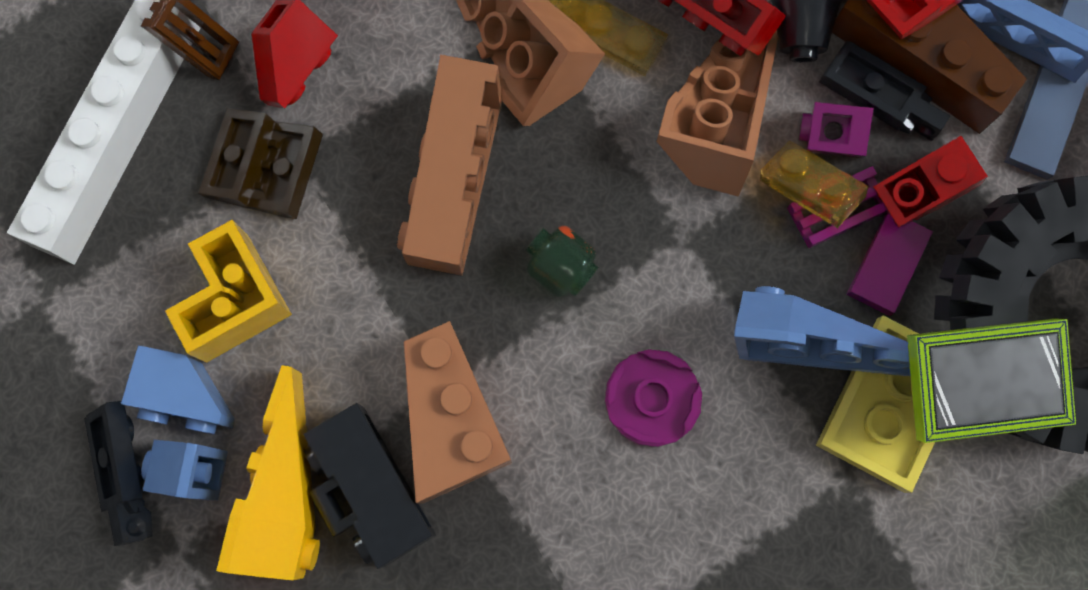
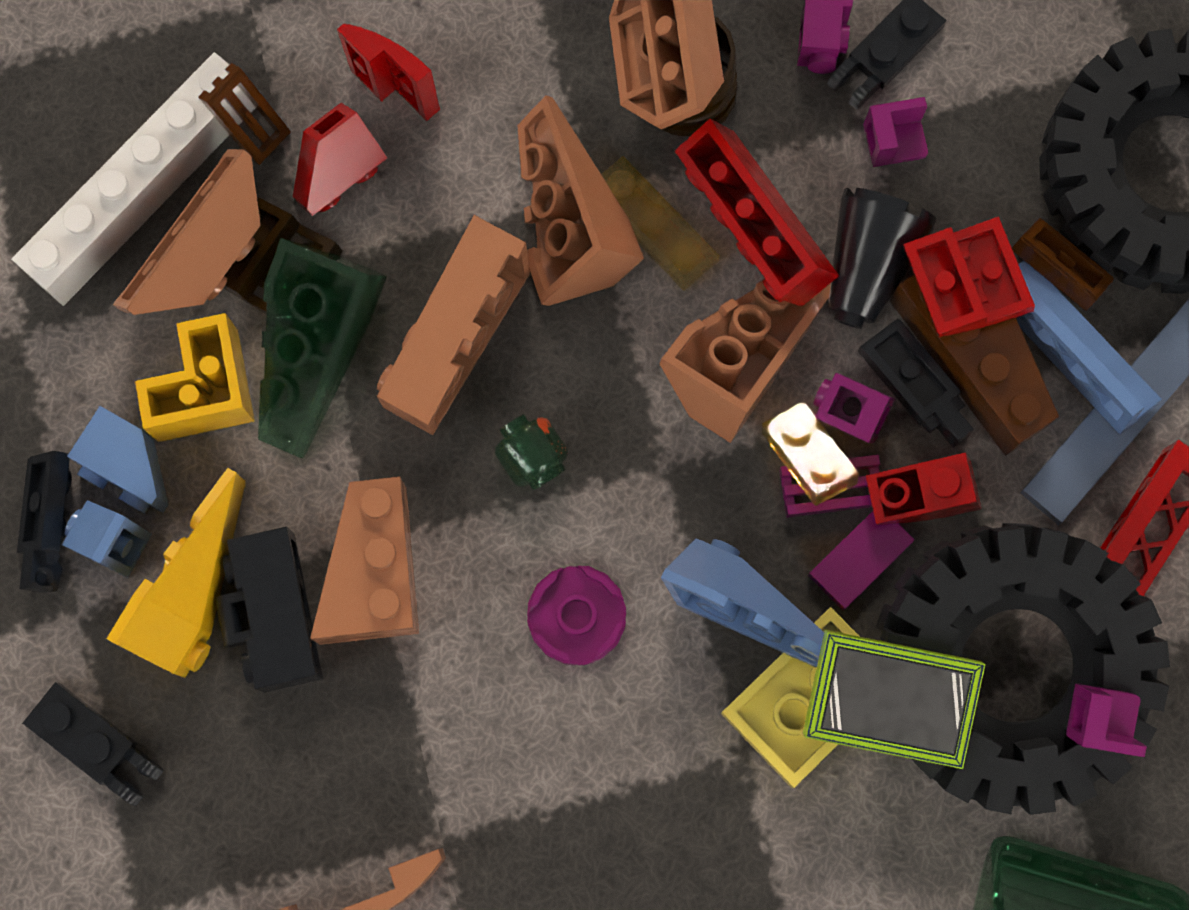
camera: 20 degrees right, 0 degrees up
(187, 161) = (201, 243): none -> nougat wedge
(319, 214) = (312, 331): none -> clear green wedge

